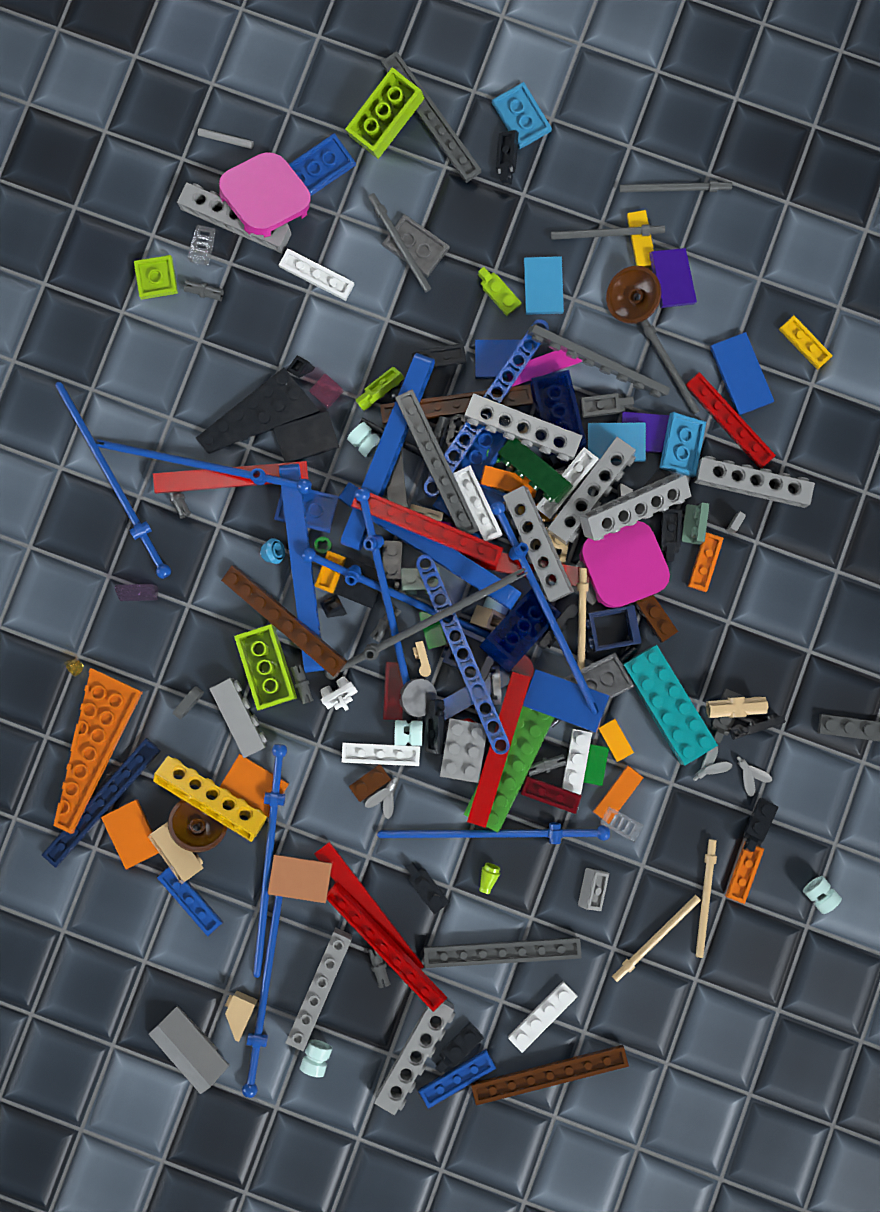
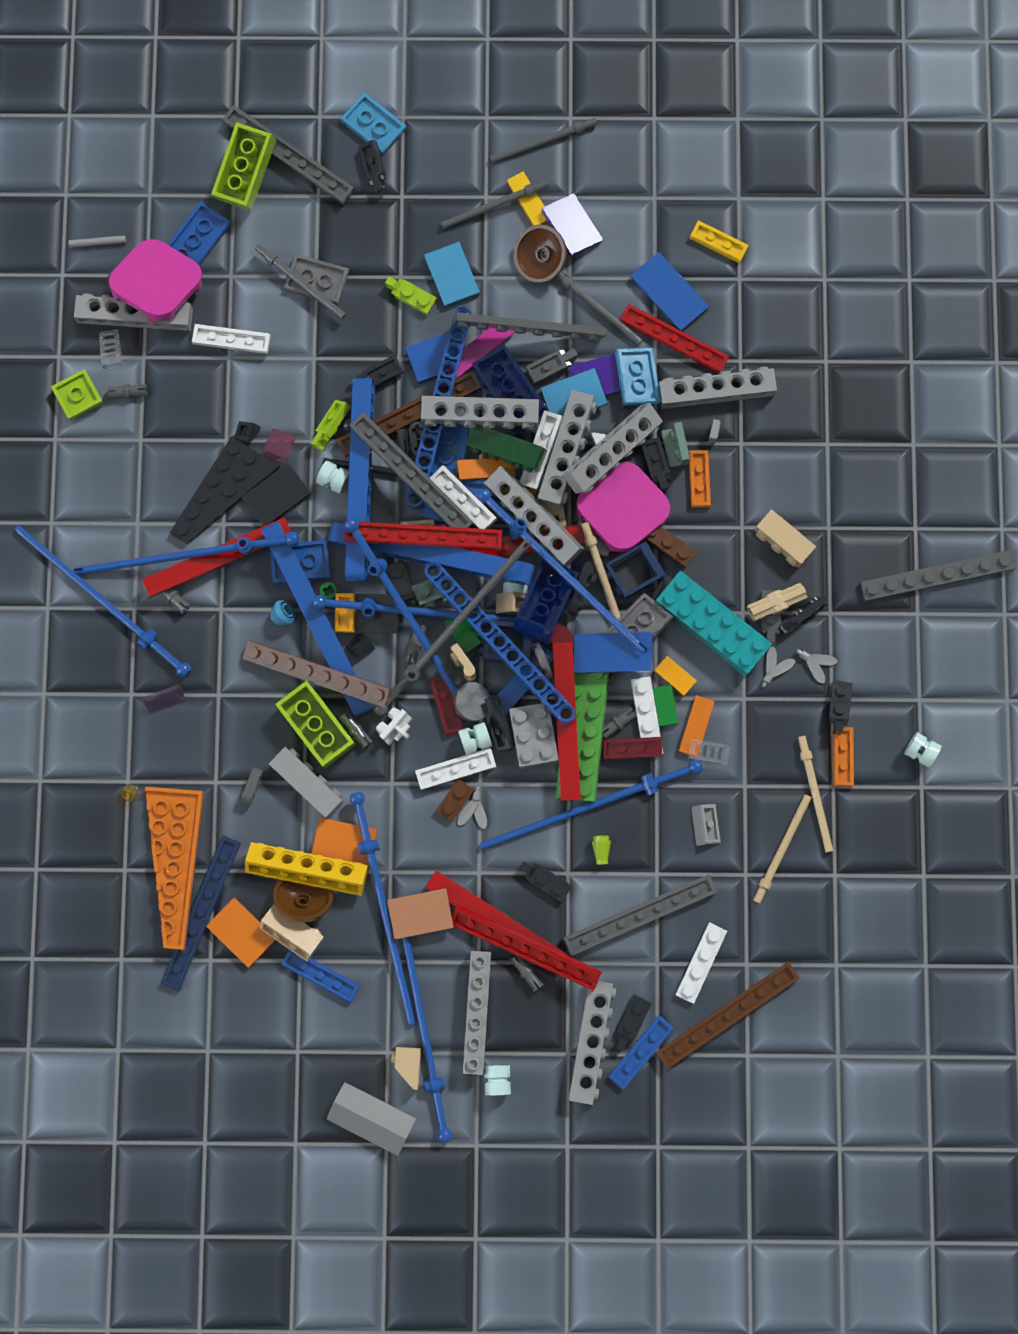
camera: 20 degrees left, 5 degrees down
(765, 648) = (784, 539): none -> tan brick

